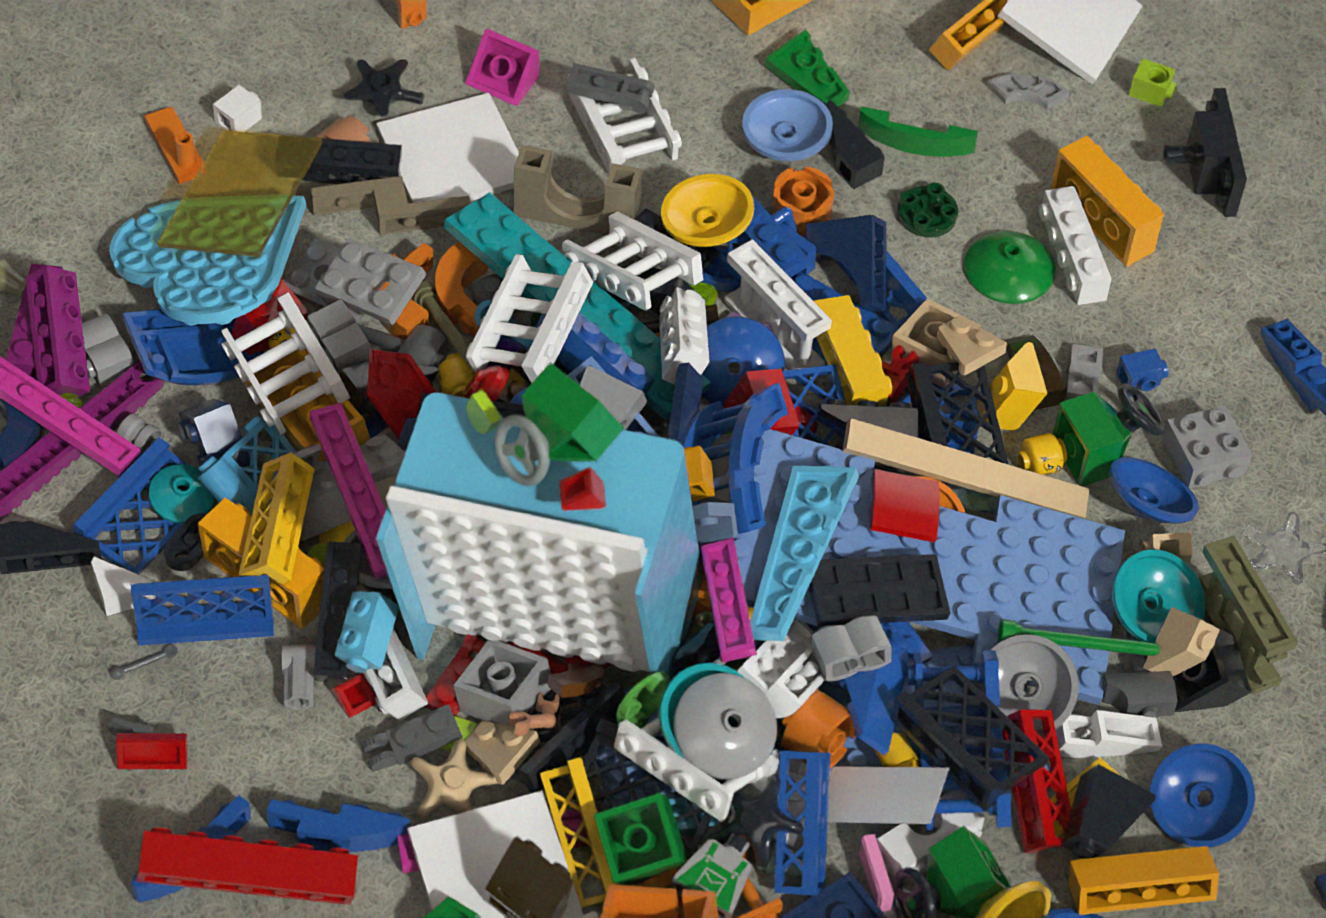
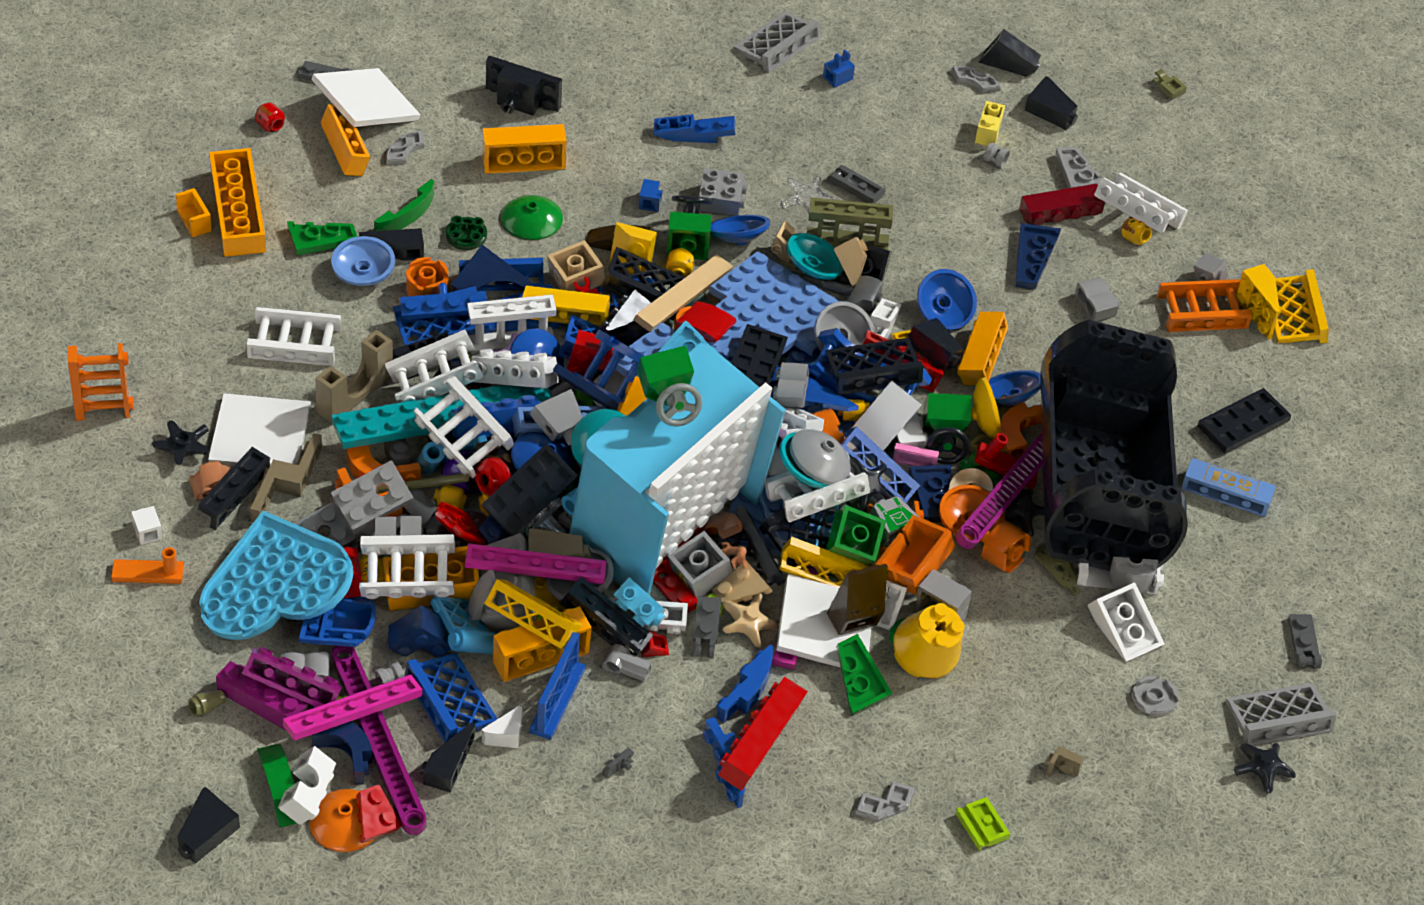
camera: 65 degrees left, 5 degrees down
(151, 750) = (642, 756): red tile -> none
(169, 651) = (566, 724): dark grey hinge -> none
(177, 504) = (451, 671): teal dish -> none
(185, 542) = (492, 683): black plate -> none
(240, 193) = (237, 541): clear yellow piece -> none
(482, 413) = (630, 418): lime tile -> none
(504, 67) = (211, 375): dark pink slope -> none
(582, 491) = (714, 396): red slope -> none
(610, 87) = (278, 326): dark grey plate -> none
(643, 699) = (775, 493): bright green dish -> none
(707, 210) = (419, 310): yellow dish -> none
(969, 344) = (602, 247): tan wing -> none
(1009, 628) = (808, 321): green piece -> none
(1075, 245) = (542, 179): white brick -> none
(1084, 370) = (630, 216): light grey slope -> none
(1153, 83) = (443, 91): lime brick -> none

